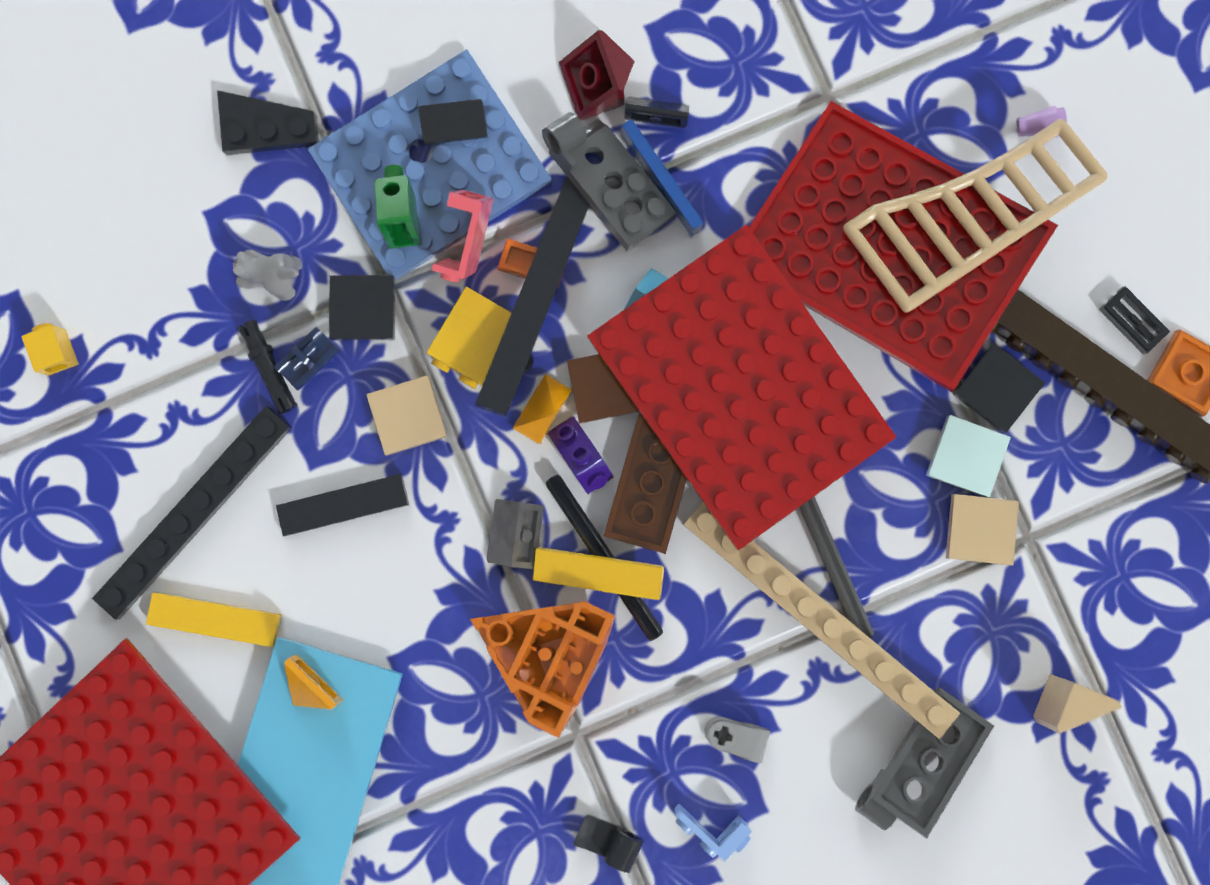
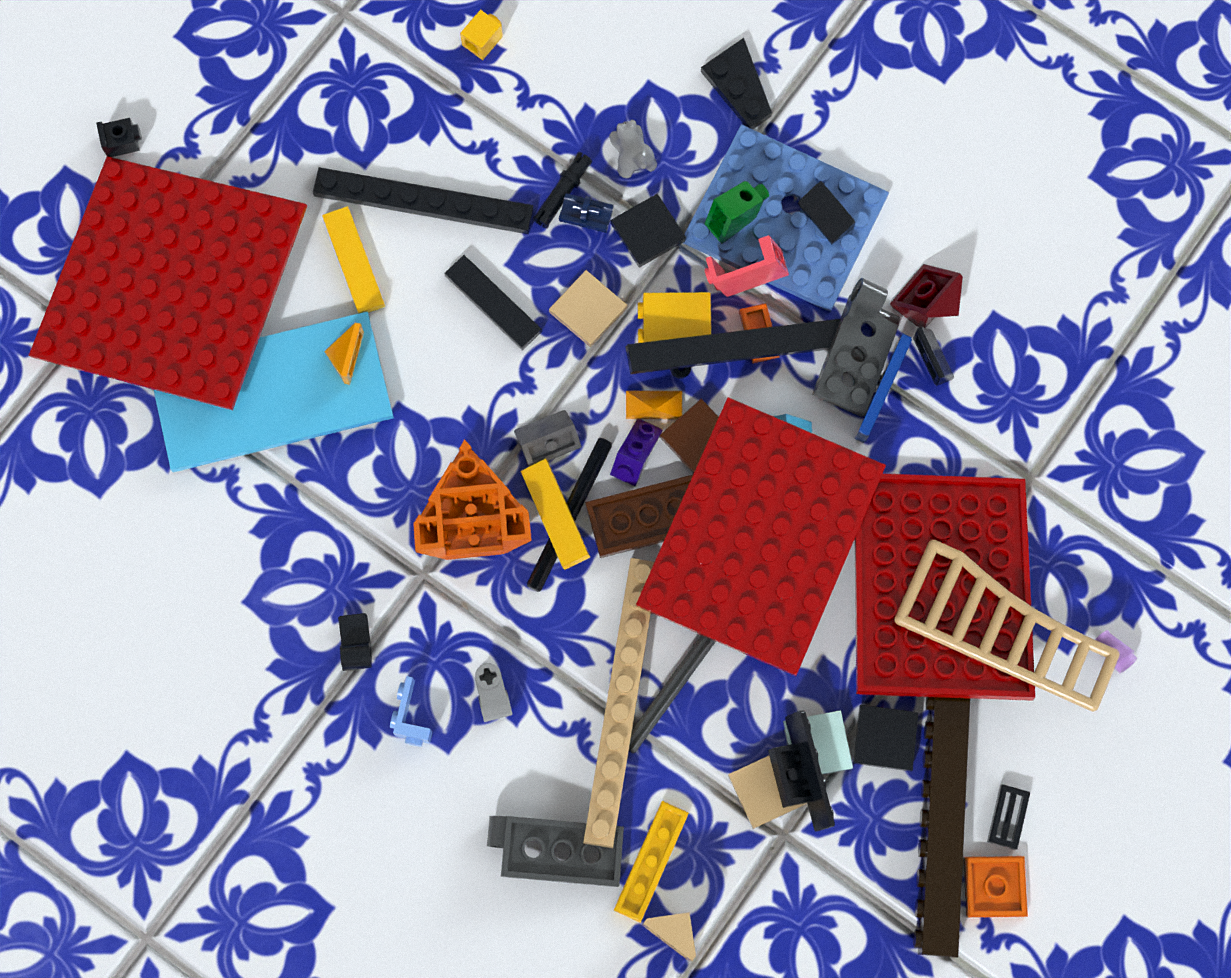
camera: 55 degrees right, 10 degrees down
(984, 679) = (651, 861): none -> yellow tile
(993, 492) = (799, 772): none -> black bracket

